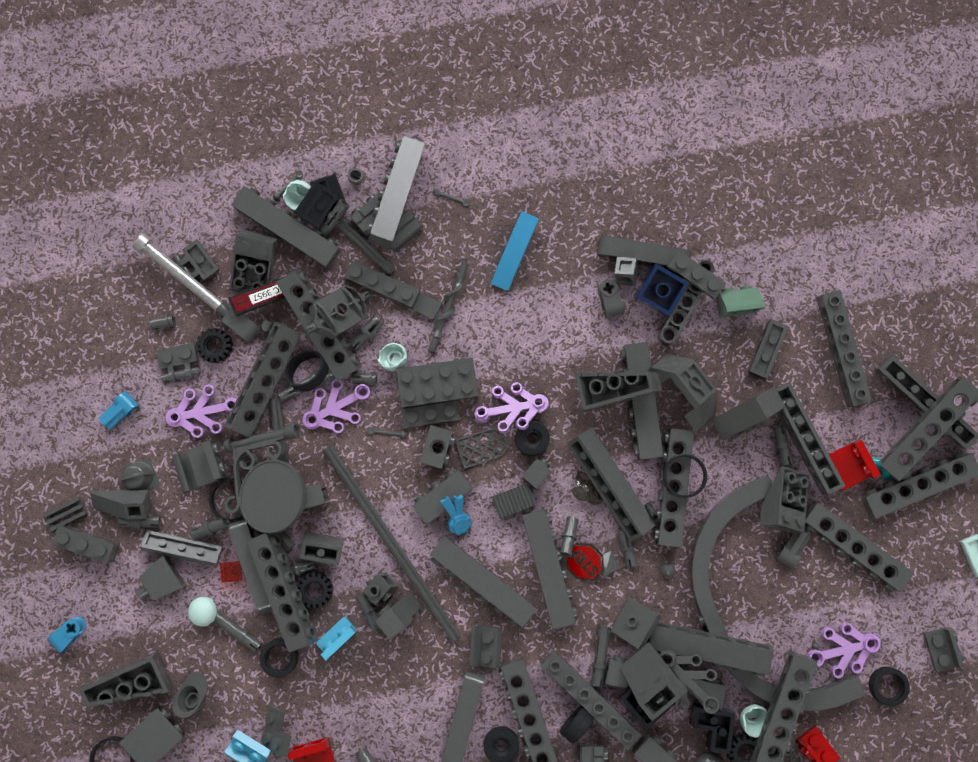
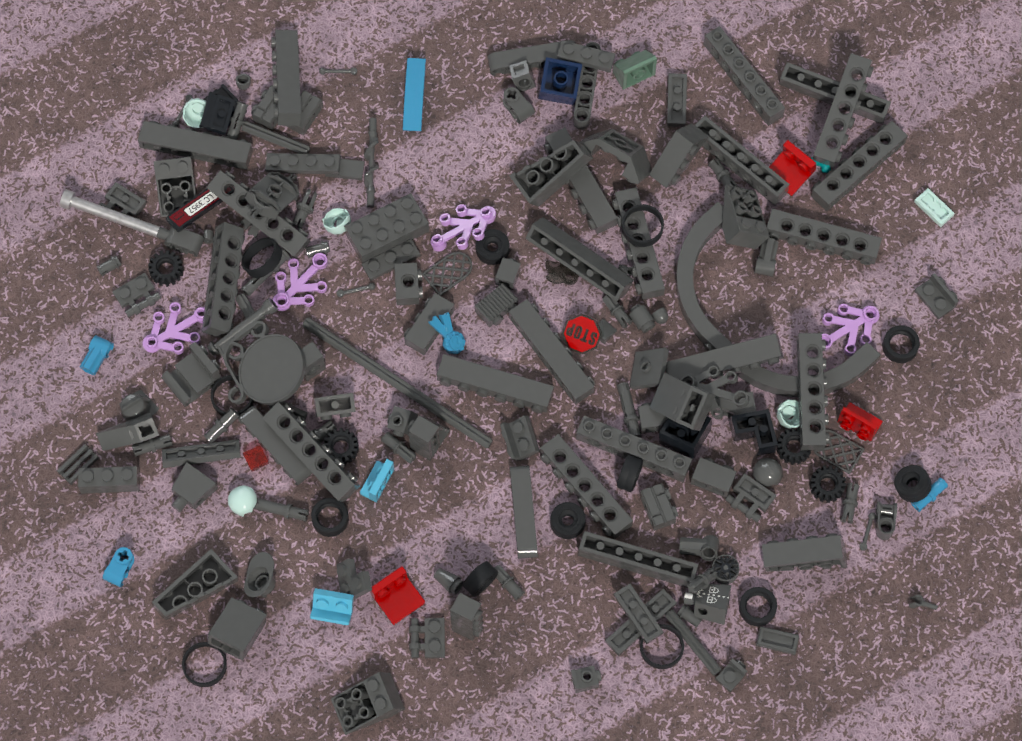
camera: 20 degrees left, 15 degrees down
(569, 536) = (559, 317): dark grey pin -> none
(648, 566) = (642, 318): none -> dark grey brick

